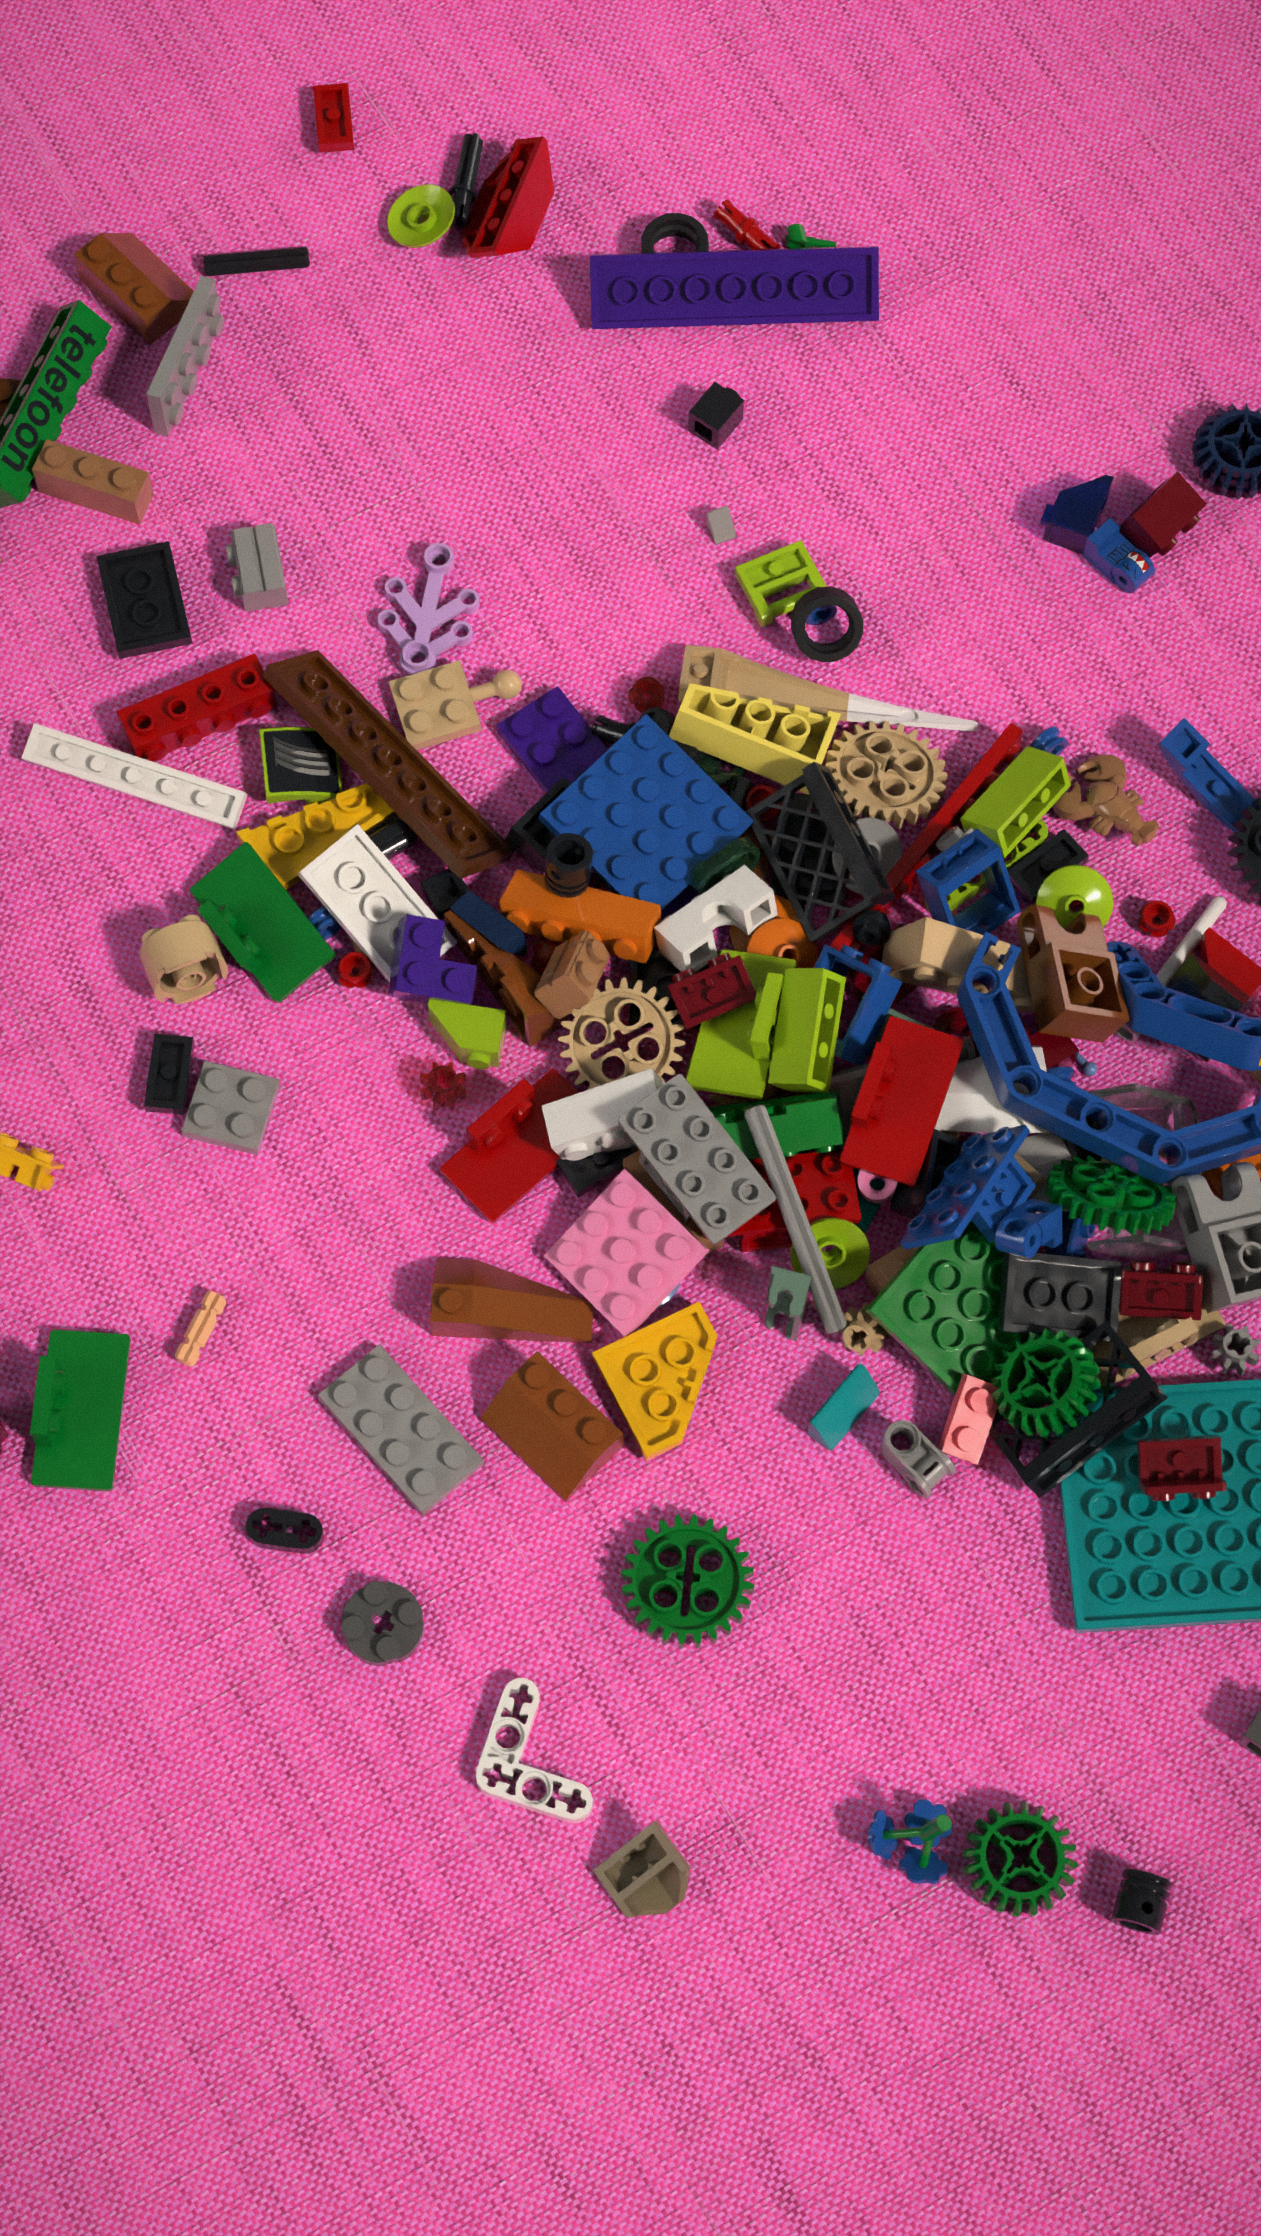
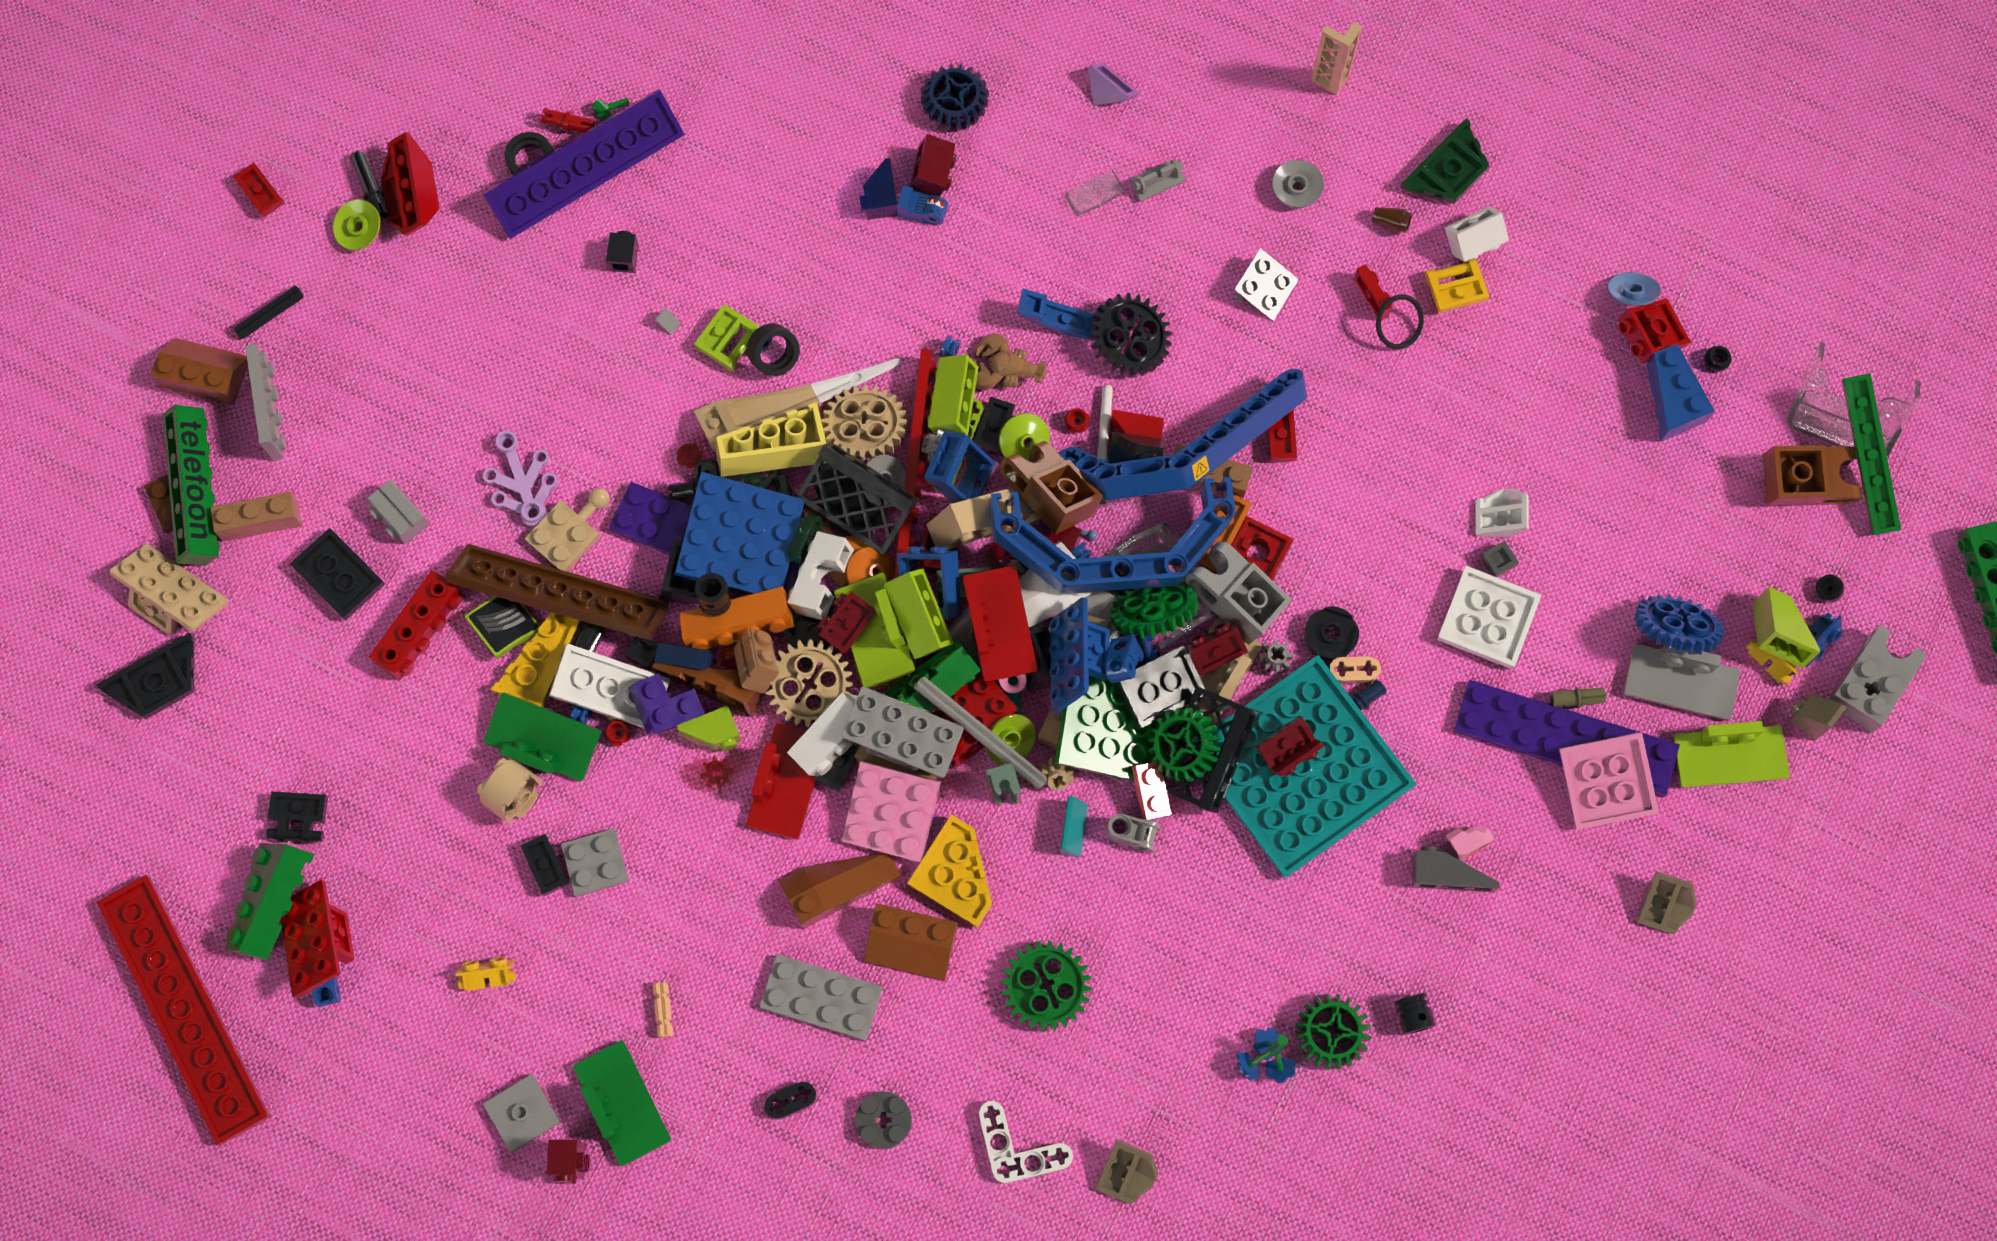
camera: 30 degrees left, 5 degrees up
(134, 776) = (403, 690): white plate -> none
(758, 794) = (795, 482): red plate -> none
(871, 928) = (916, 526): black plate -> none

